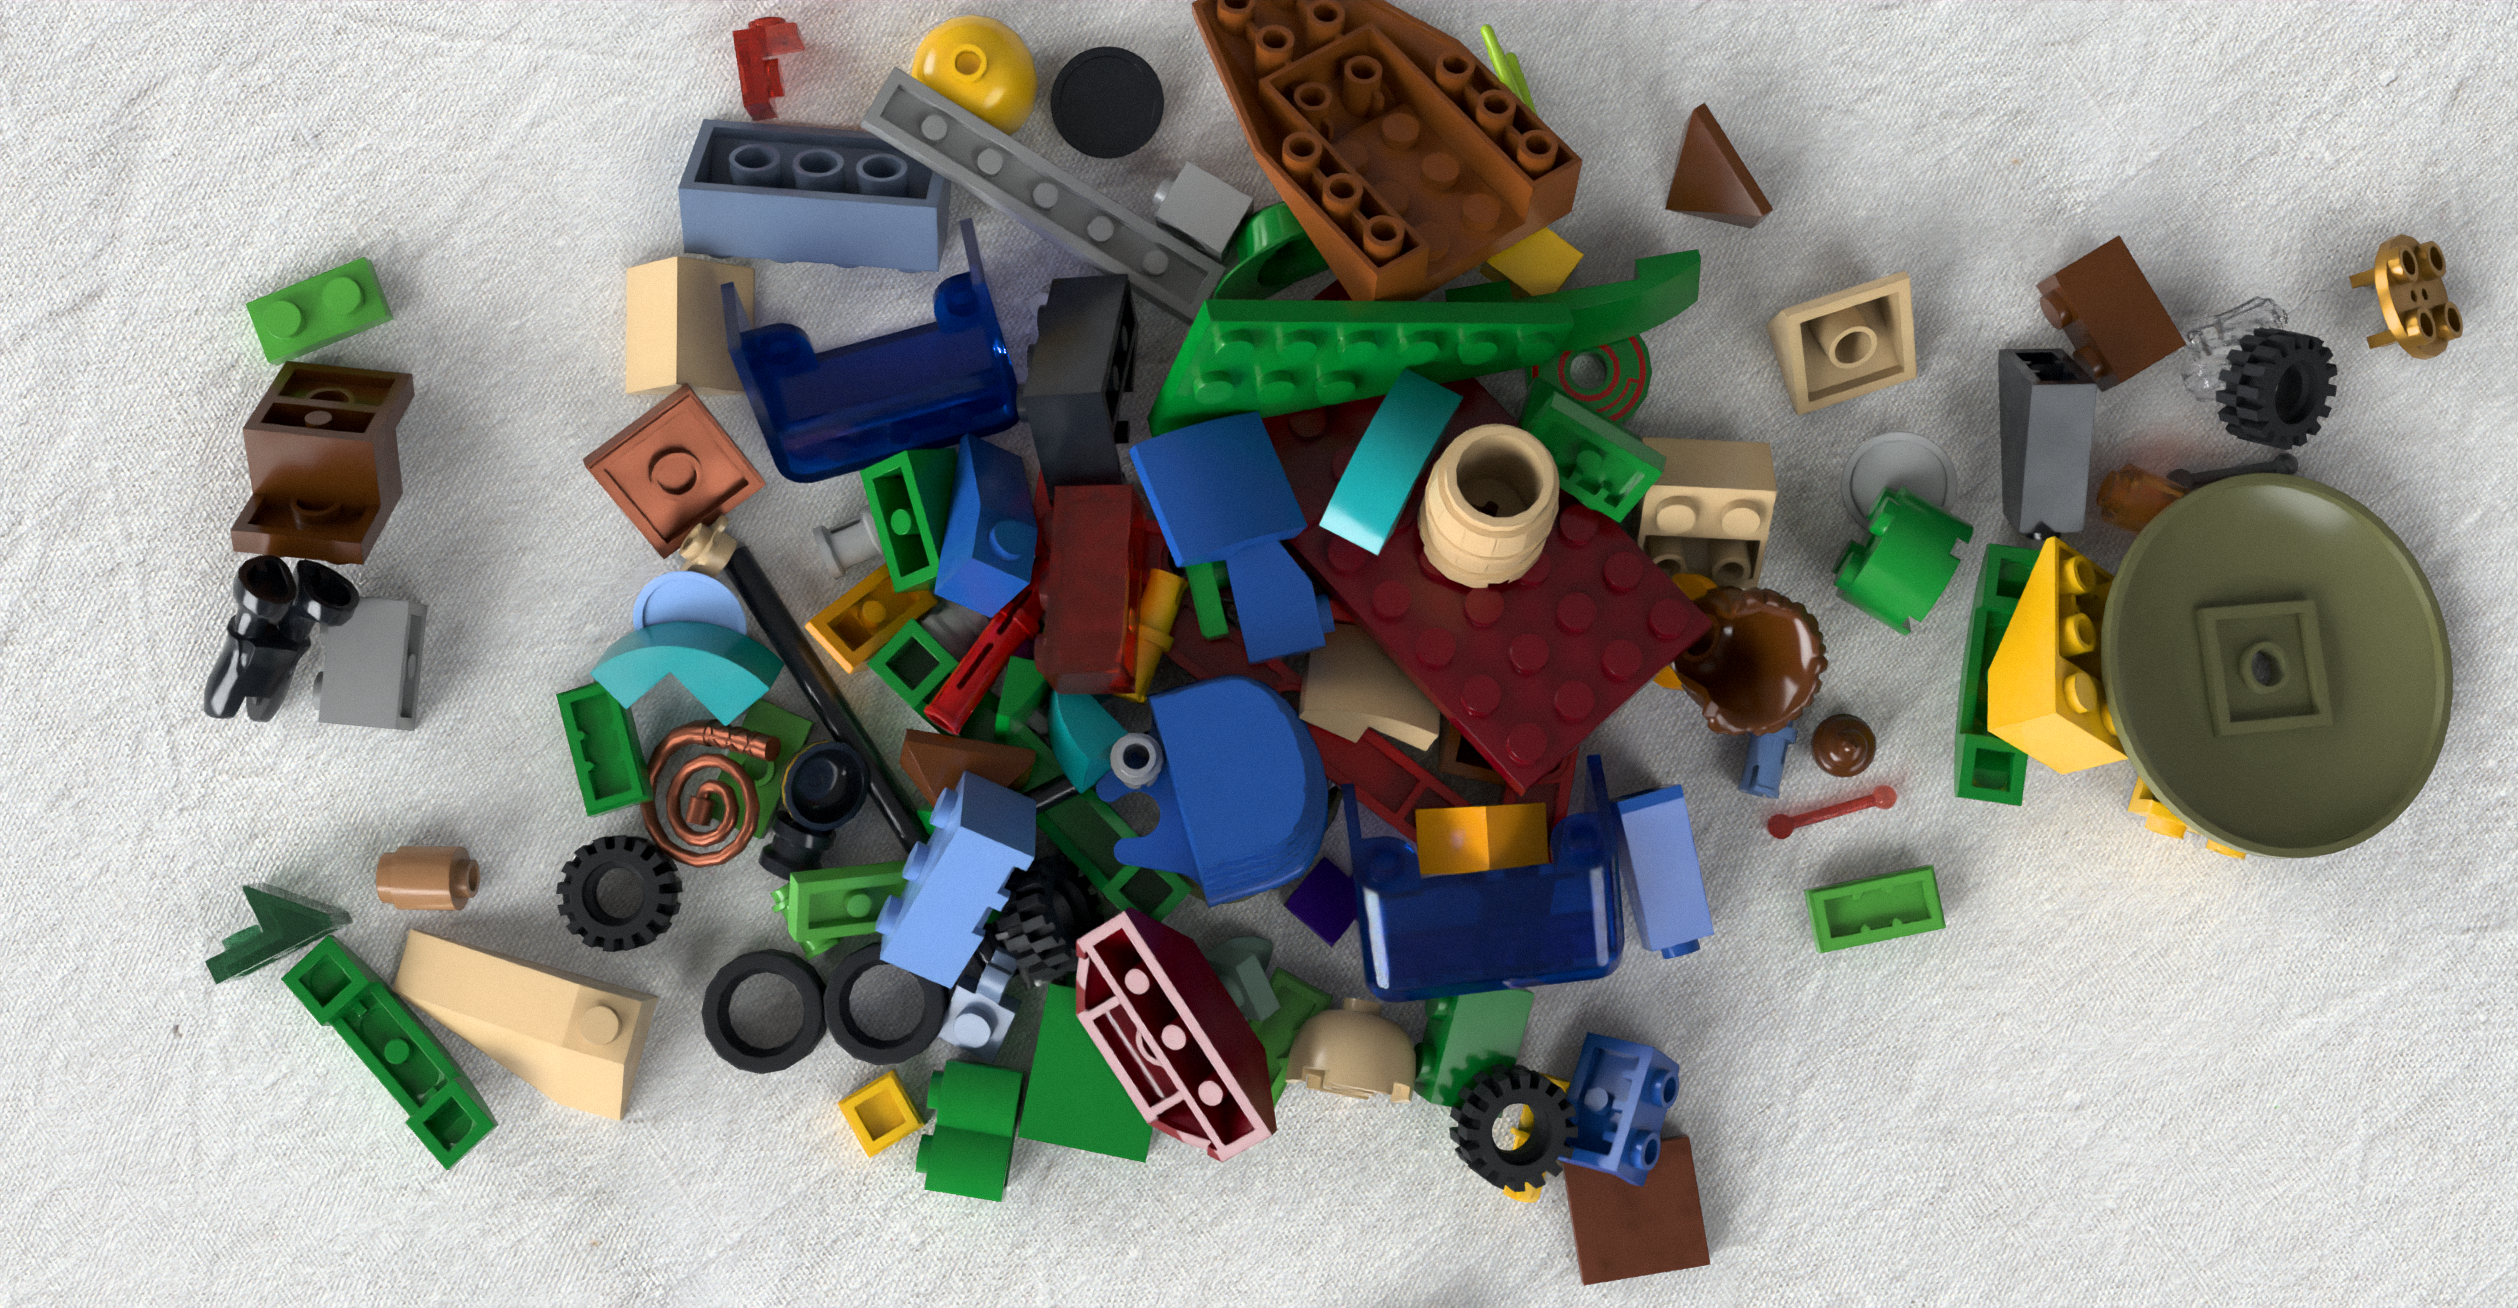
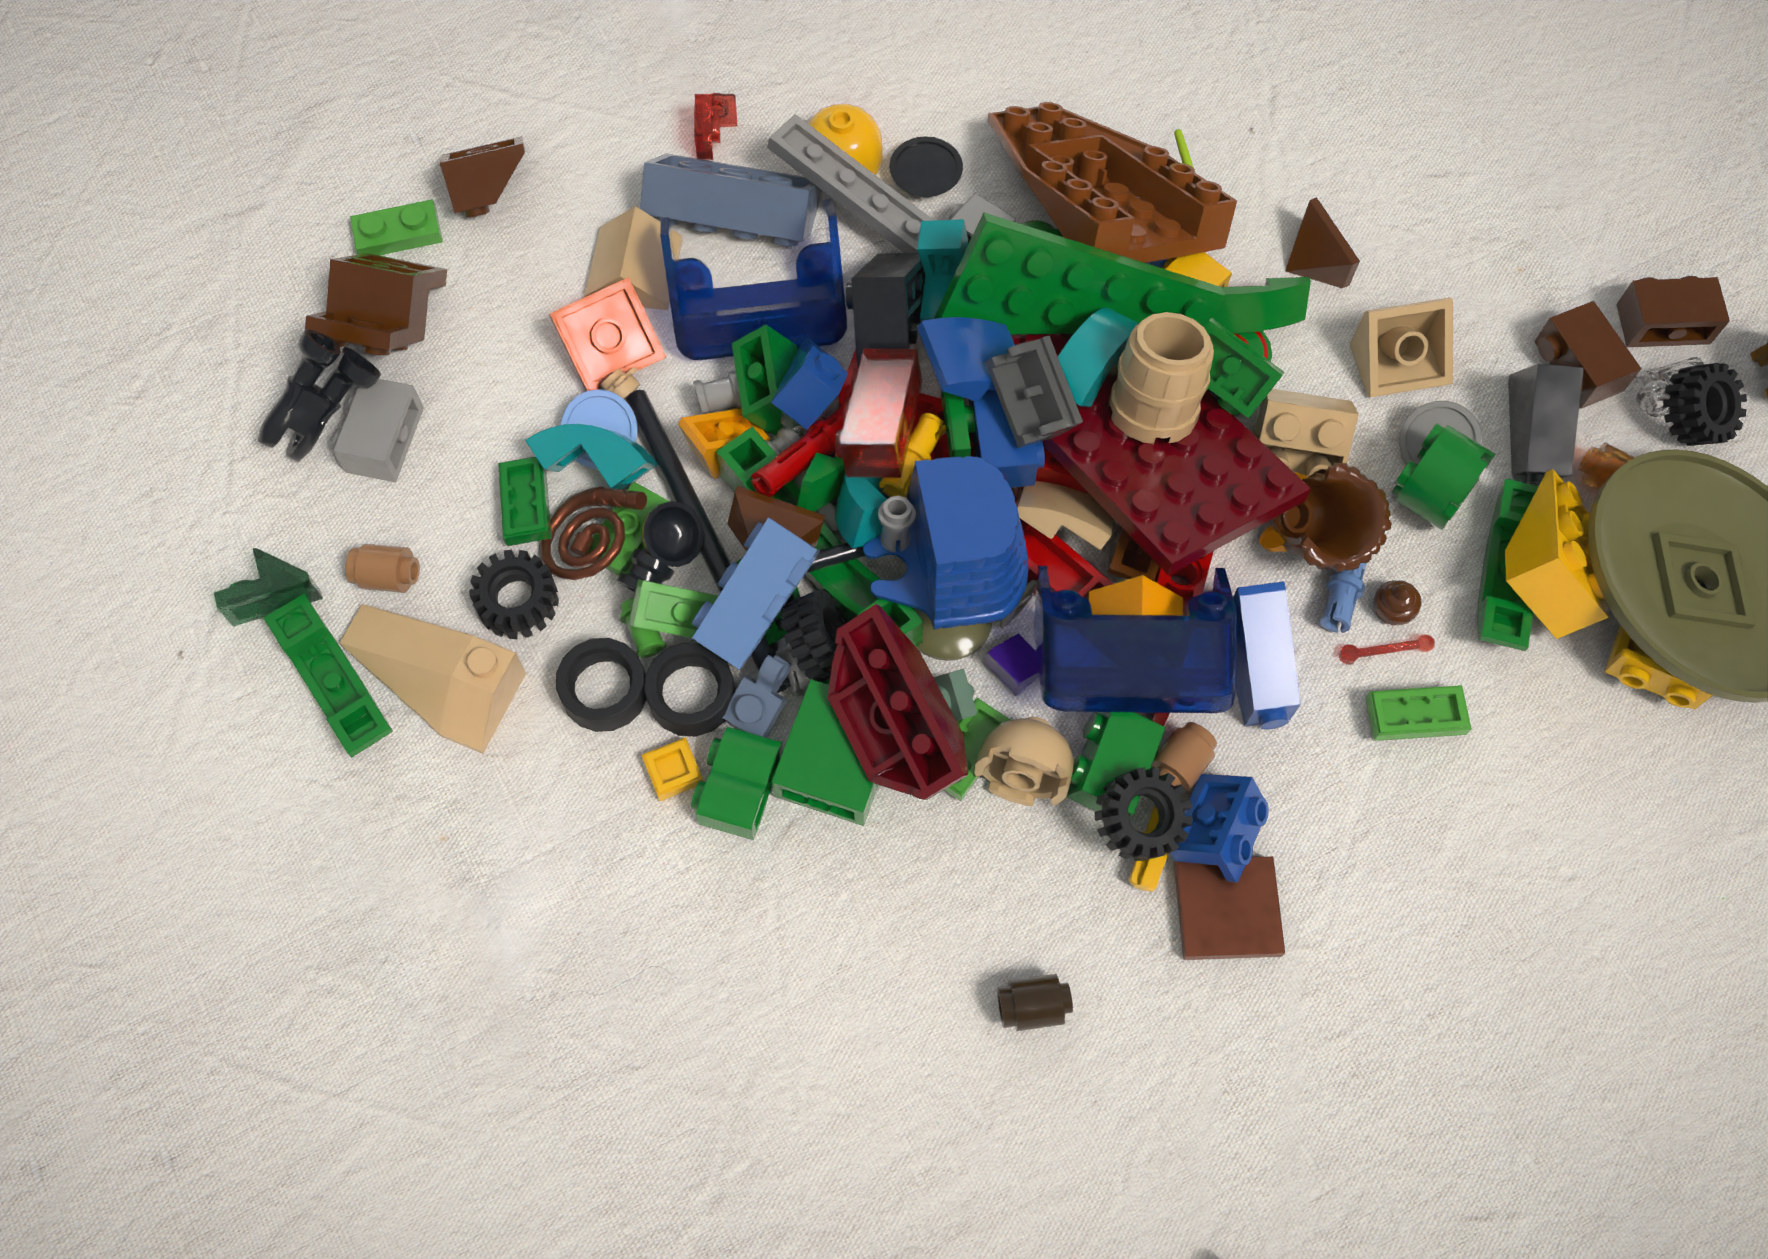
camera: 10 degrees right, 20 degrees down
(427, 201) = (480, 174): none -> reddish brown slope
(1161, 310) = (940, 251): none -> teal brick
(1308, 552) = (1034, 392): none -> dark grey hinge
(1562, 1020) = (1186, 754): none -> medium nougat brick
(2237, 222) = (1672, 311): none -> reddish brown brick

